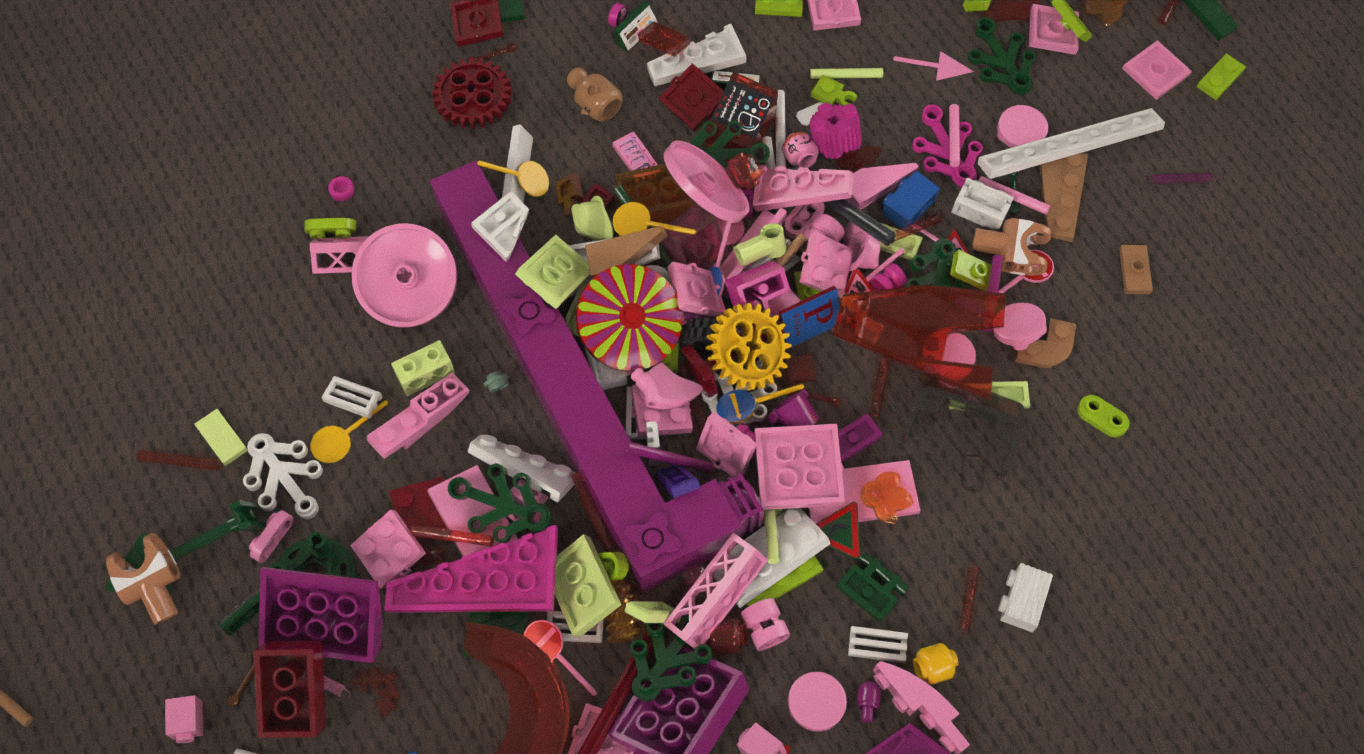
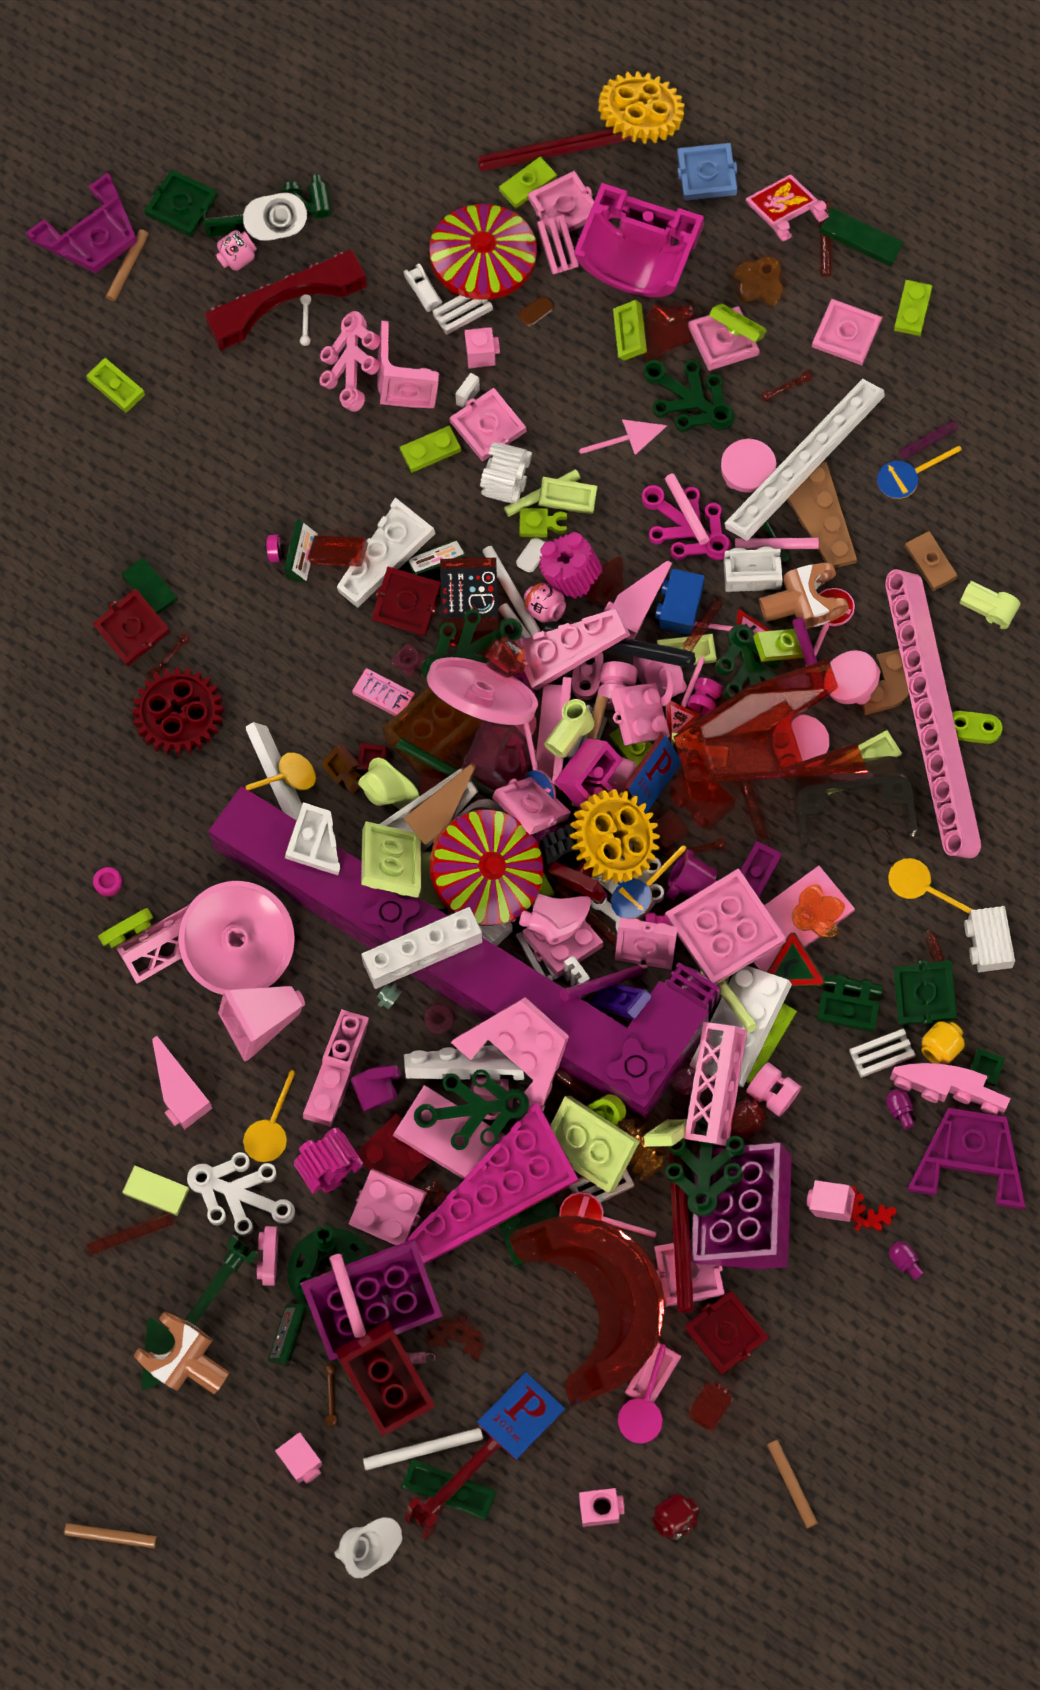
camera: 25 degrees left, 5 degrees up
(287, 368) = (180, 1093): none -> bright pink slope
(295, 599) = (347, 1295): none -> bright pink bar
(361, 484) = (327, 1161): none -> dark pink brick
(370, 405) = (258, 1095): white tile -> none
(384, 341) = (258, 1015): none -> bright pink slope
(423, 368) = (311, 1020): yellowish green brick -> none
(439, 446) = (376, 1087): none -> magenta piece
(453, 535) = (444, 1162): clear red bar -> none
(525, 413) = (438, 1010): none -> clear pink plate
(532, 348) = (422, 947): none -> white brick
(576, 470) = (524, 1038): none -> bright pink wing
(595, 94) = (305, 649): medium nougat piece -> none
(636, 217) = (433, 767): yellow piece -> none
(665, 136) = (404, 653): none -> clear pink plate
(817, 701) = (856, 1133): bright pink tile -> none
(824, 41) = (504, 473): none -> white brick
(842, 359) = (705, 801): none -> clear red brick
(865, 82) = (567, 495): none -> yellowish green tile
(943, 613) = (925, 993): none -> dark green plate
(966, 705) = (988, 1064): none -> dark green tile
(984, 513) = (911, 879): none -> yellow piece
(1072, 390) = (933, 714): none -> bright pink beam
(1106, 87) = (805, 377): none -> clear red hinge
(1144, 196) = (900, 479): none -> blue piece
(1172, 330) = (995, 607): none -> yellowish green piece

